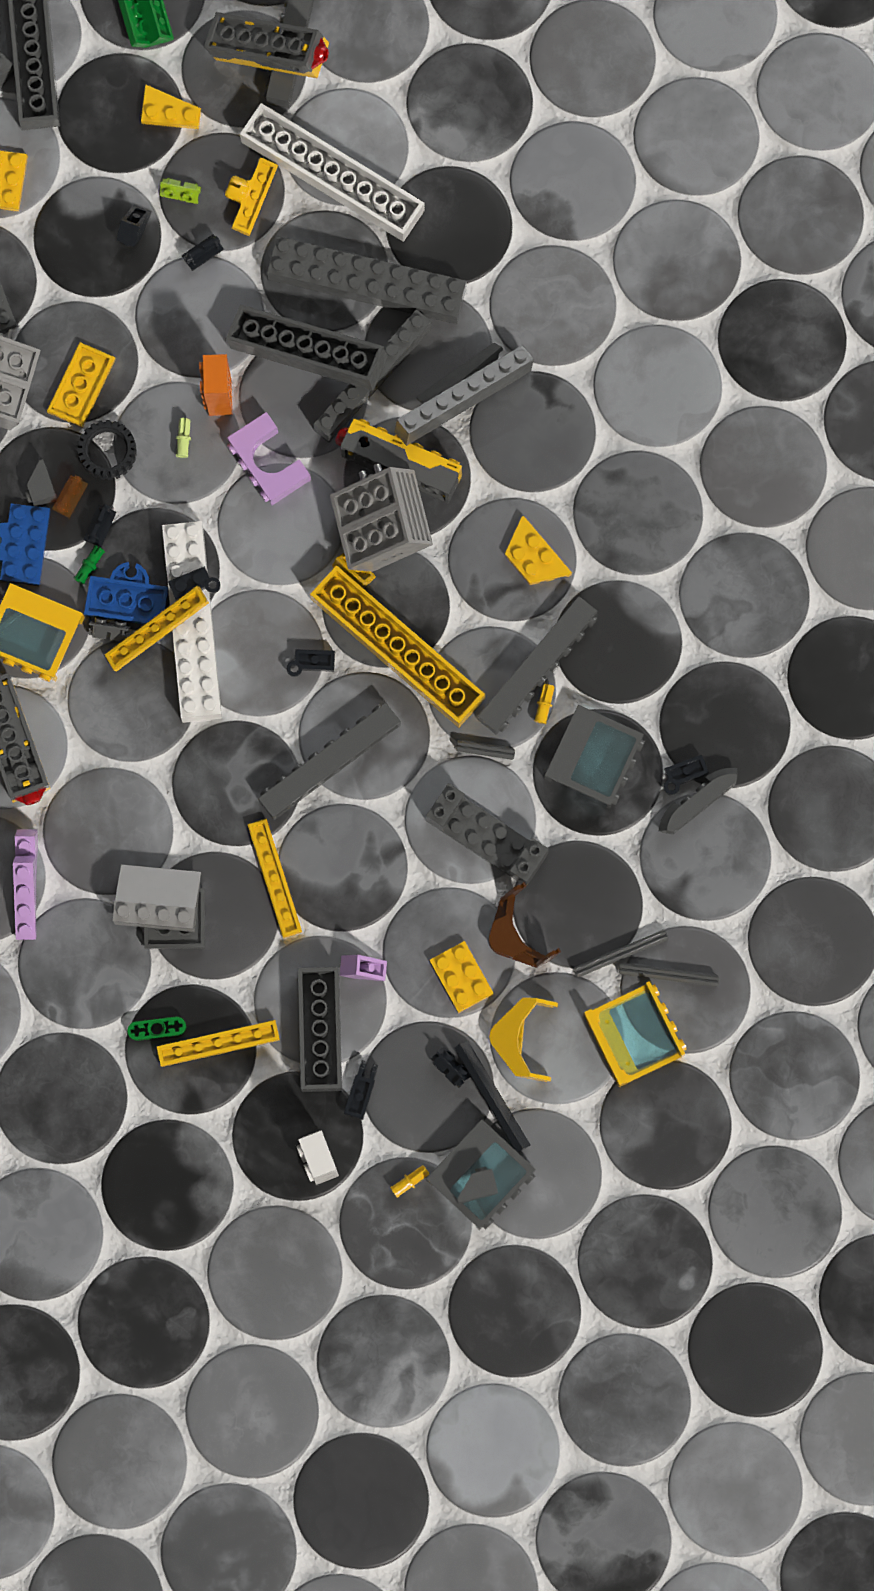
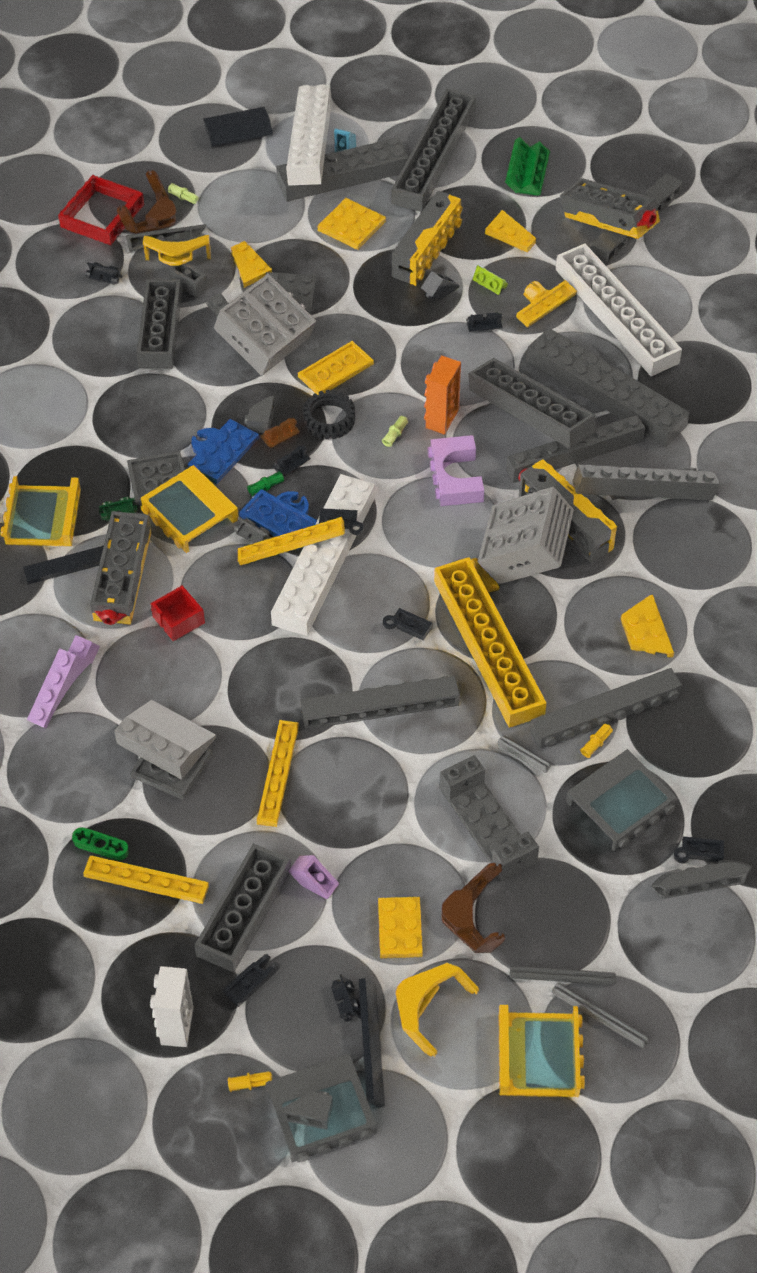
camera: 25 degrees right, 25 degrees down
(90, 168) = (426, 238): none -> piece
(91, 759) = (177, 613): none -> red piece

